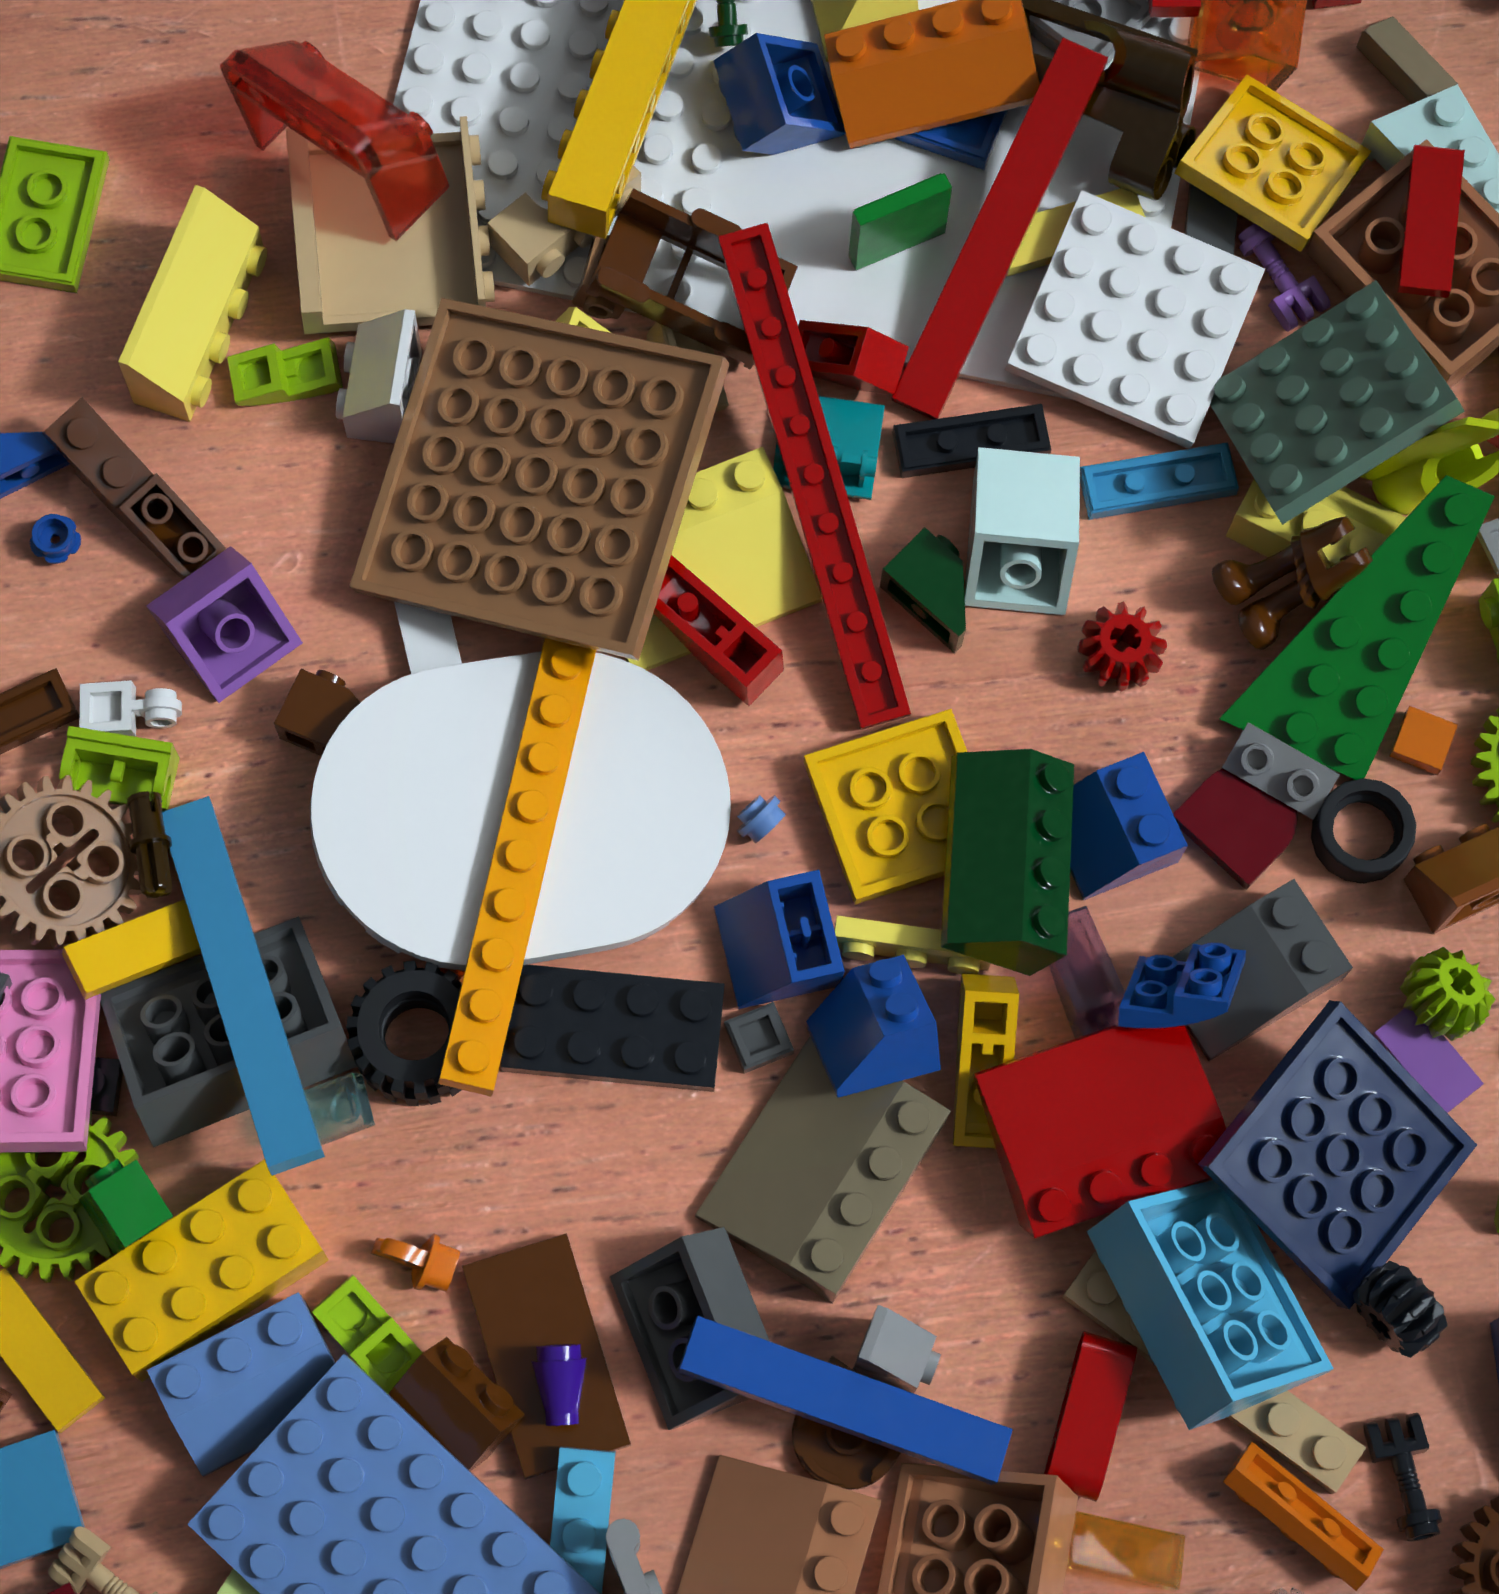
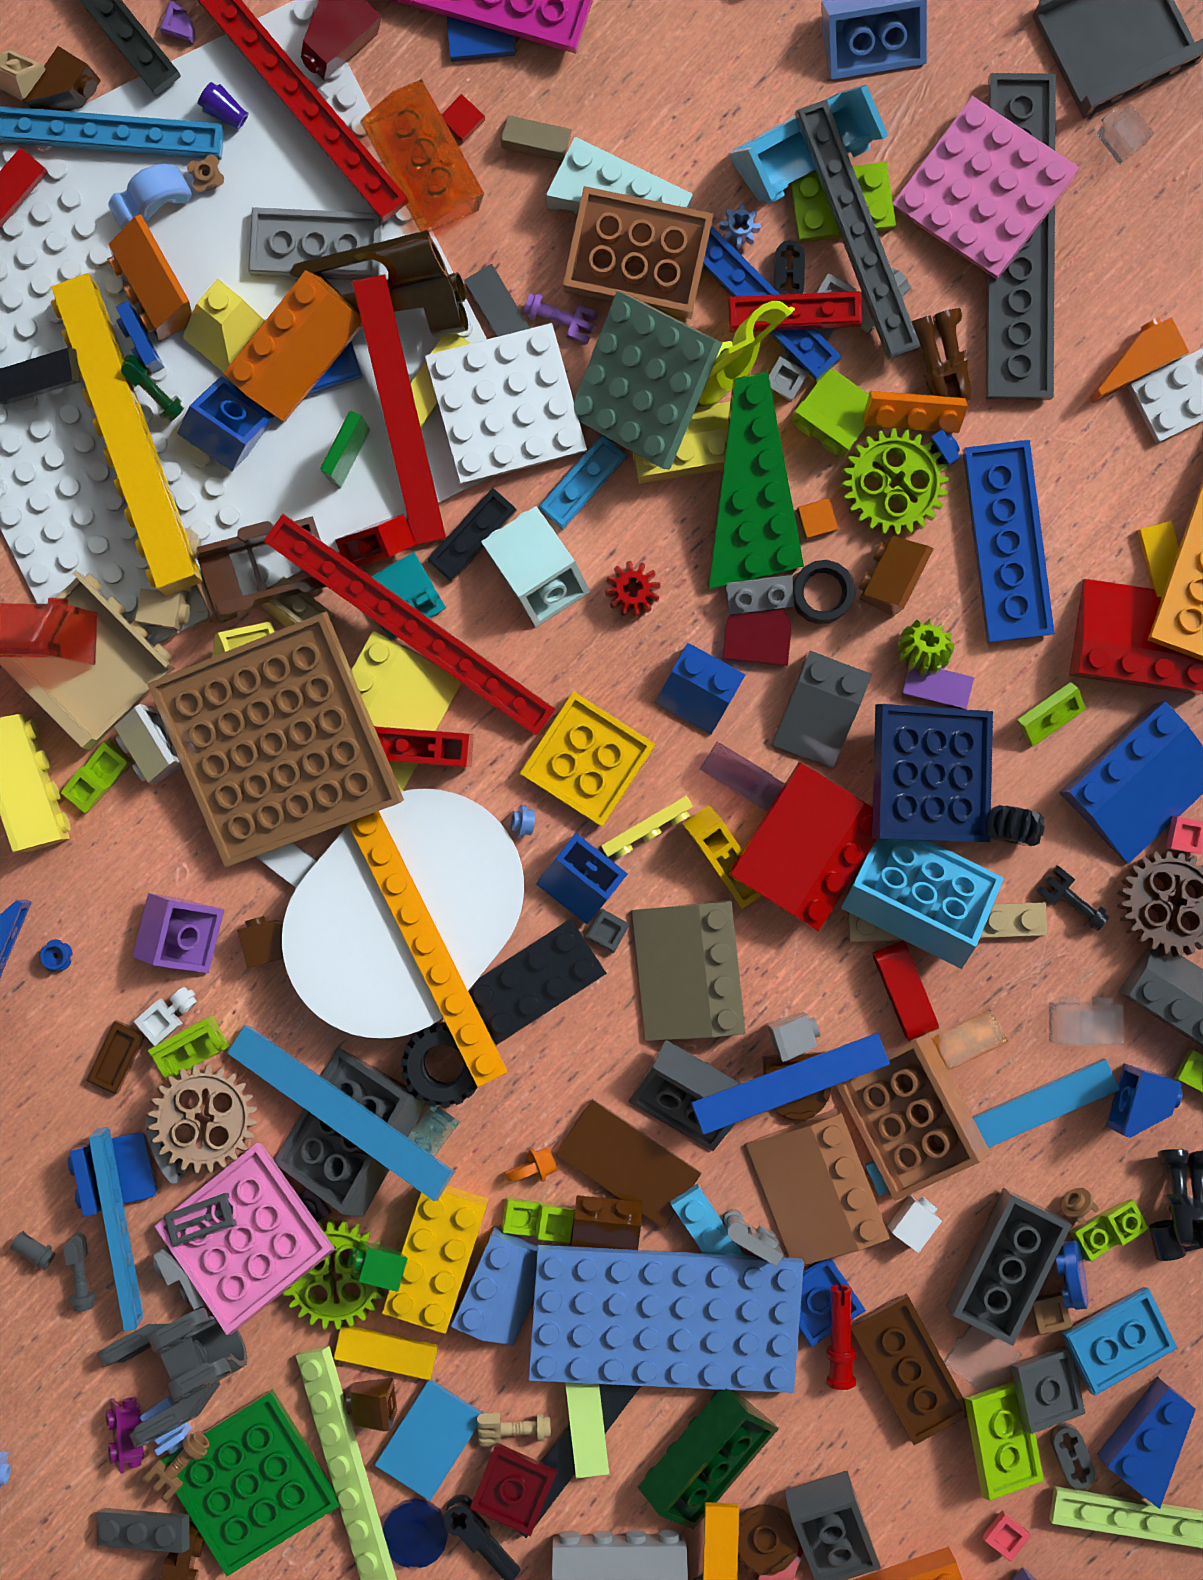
camera: 30 degrees left, 15 degrees up
(132, 490) = (74, 902): reddish brown slope -> none
(132, 949) = (272, 1133): yellow tile -> none
(150, 844) = (238, 1075): dark brown axle -> none
(560, 1382) = (646, 1174): dark purple cone -> none
(875, 1028) = (663, 888): blue slope -> none
(930, 586) = (512, 632): dark green slope -> none
(1008, 858) = (662, 751): dark green slope -> none
(1181, 992) = (797, 752): blue slope -> none
(1272, 162) = (510, 257): yellow plate -> none
(1303, 1516) = (1040, 959): orange plate -> none
(1314, 581) = (706, 484): reddish brown piece -> none
(1431, 221) = (620, 233): red tile -> none

